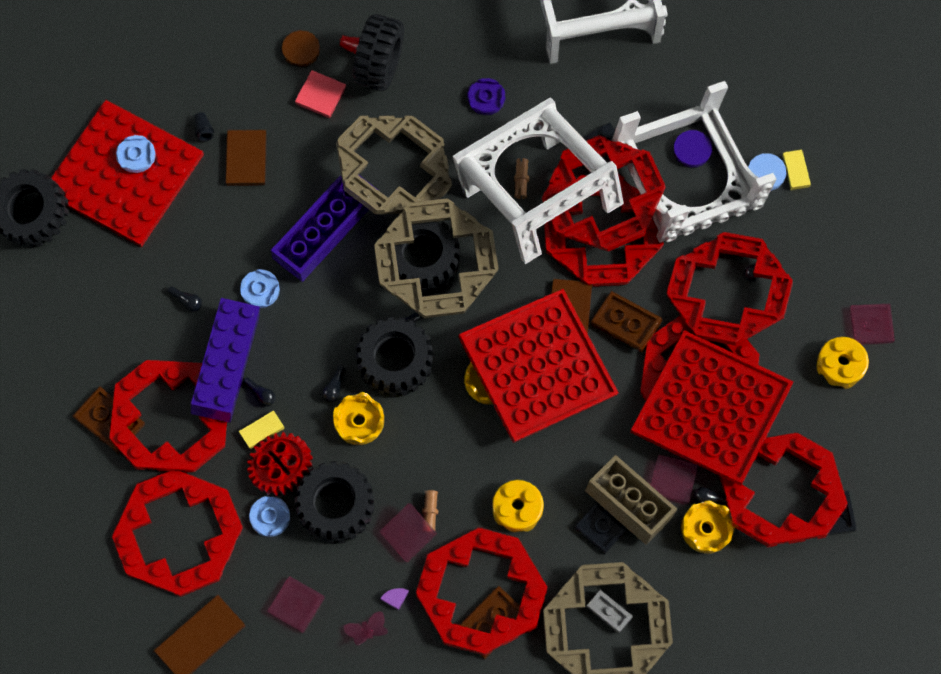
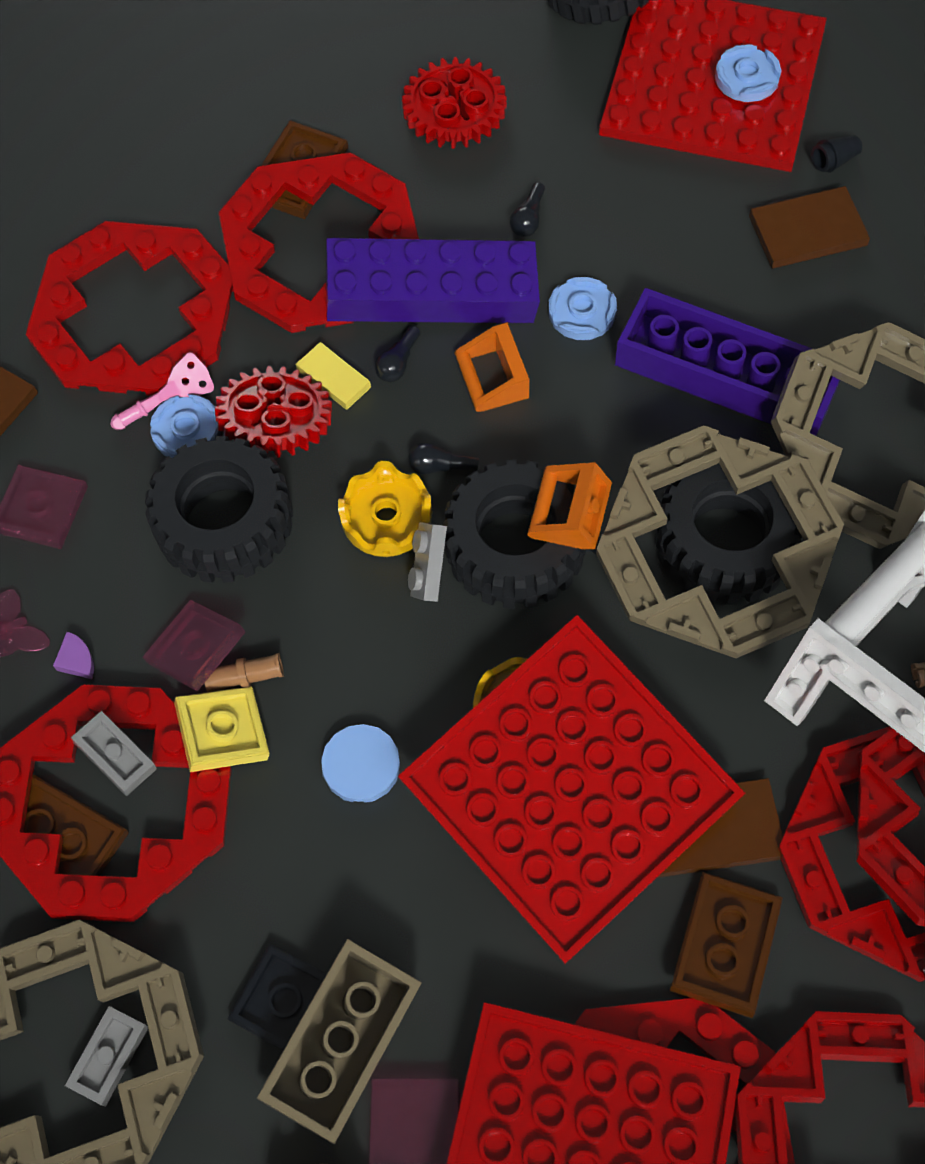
camera: 80 degrees right, 5 degrees down
(97, 335) = (446, 95): none -> red gear
(236, 504) = (172, 388): none -> bright pink piece
(284, 334) = (501, 340): none -> orange tile
(398, 403) = (429, 549): none -> light grey plate
(402, 312) = (586, 508): none -> orange tile
(459, 527) = (221, 729): none -> light yellow plate
(462, 579) = (113, 753): none -> light grey plate
(494, 465) = (360, 763): none -> light blue tile
(513, 519) = (292, 850): yellow plate -> none

